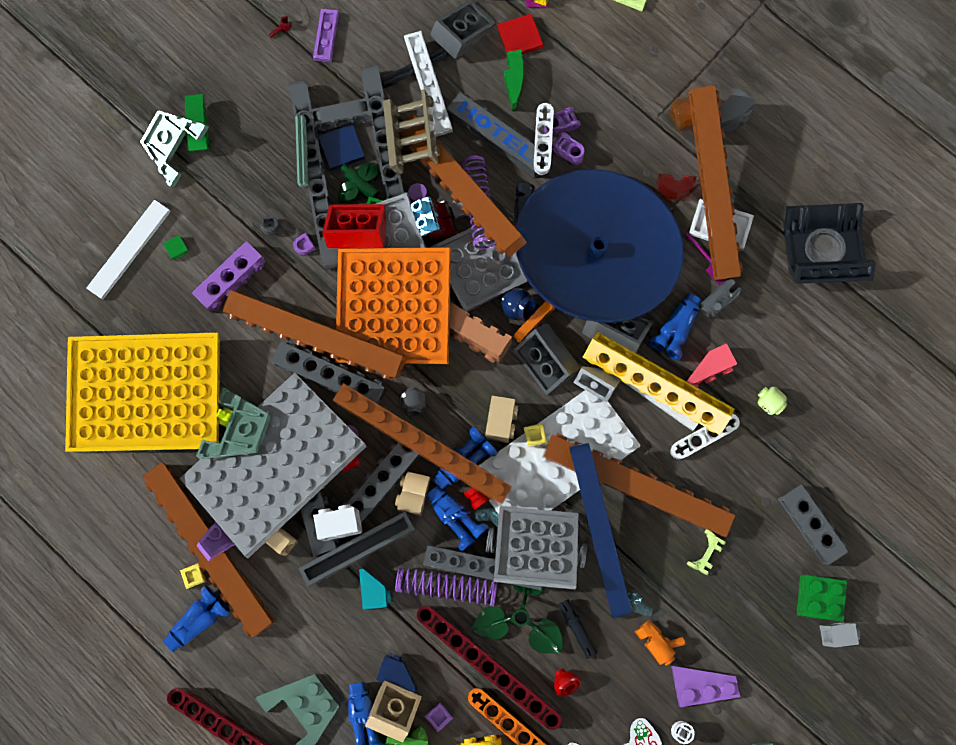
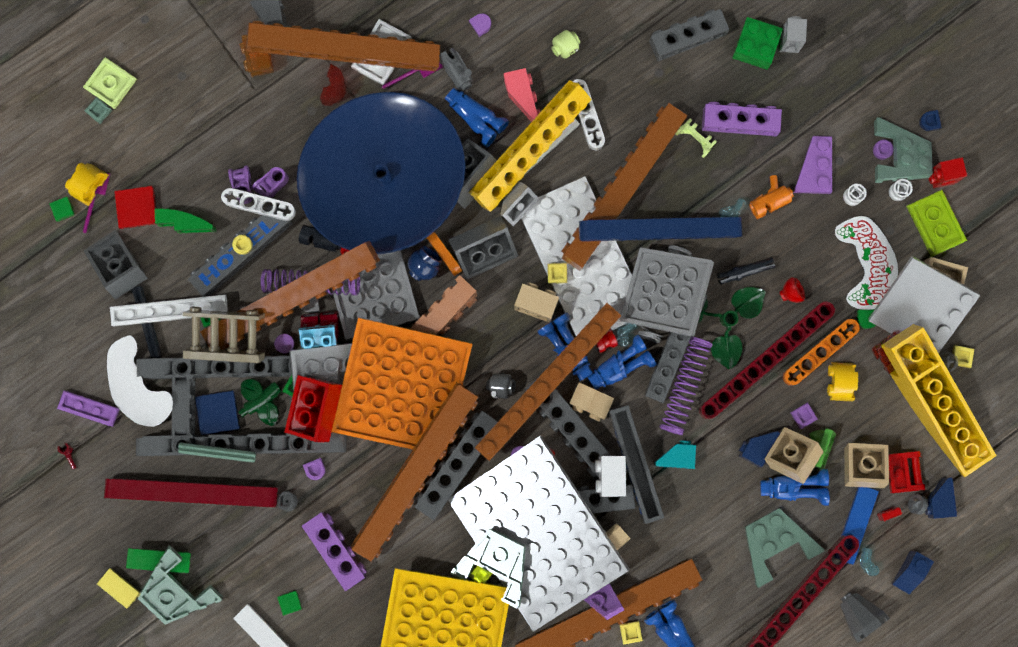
camera: 85 degrees left, 5 degrees up
(168, 95) = (118, 588): none -> light yellow tile
(263, 139) = (190, 492): none -> dark red beam
(338, 75) = (128, 390): none -> white sticker
(502, 132) = (242, 244): none -> light yellow tile
(727, 586) = (713, 123): none -> medium lavender brick
(773, 314) = (481, 24): none -> medium lavender tile

